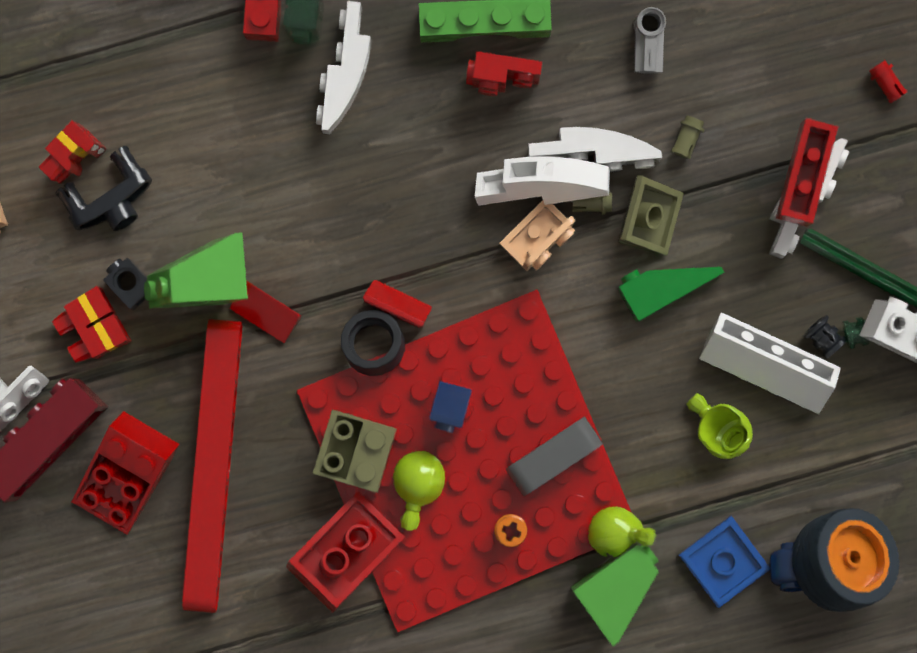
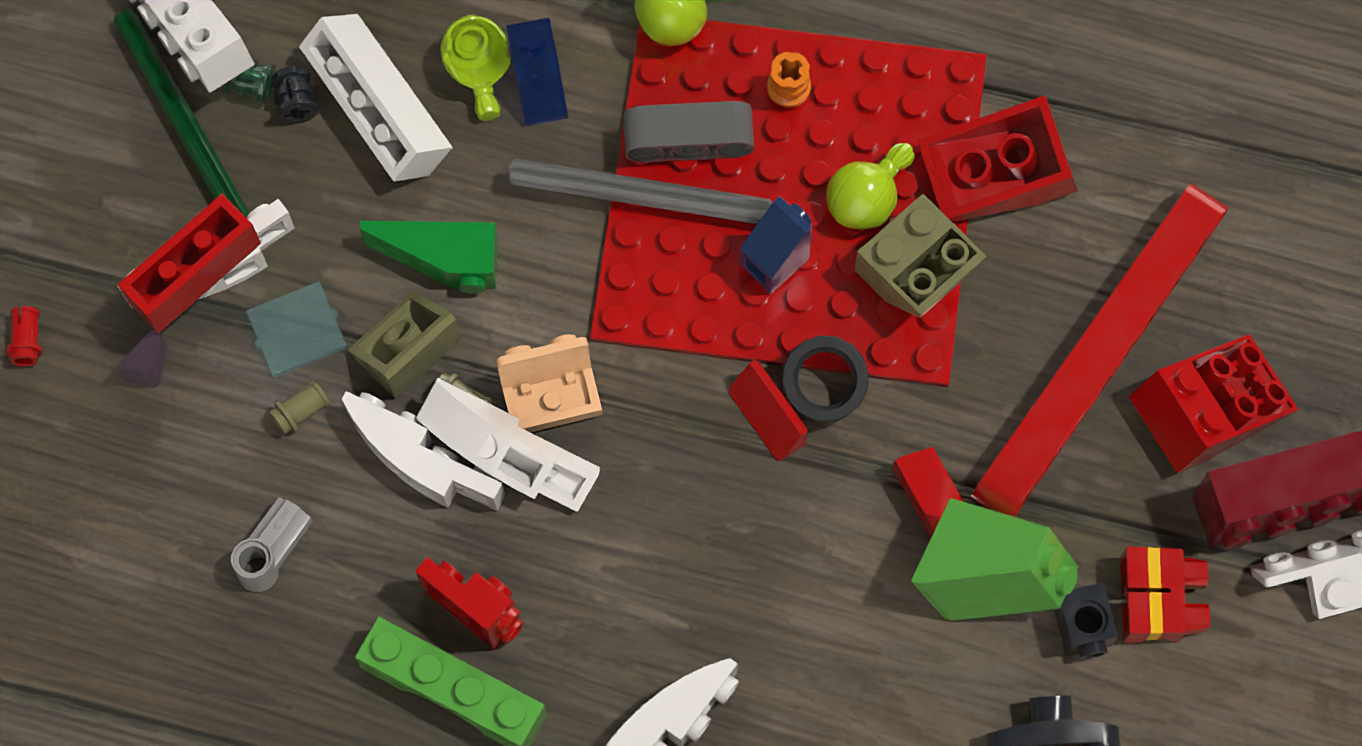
camera: 150 degrees left, 15 degrees down
(562, 399) = (637, 191): none -> dark grey axle
(678, 444) = (537, 71): none -> clear blue slope
(724, 188) = (296, 329): none -> clear light blue piece
(800, 106) = (145, 361): none -> clear purple slope

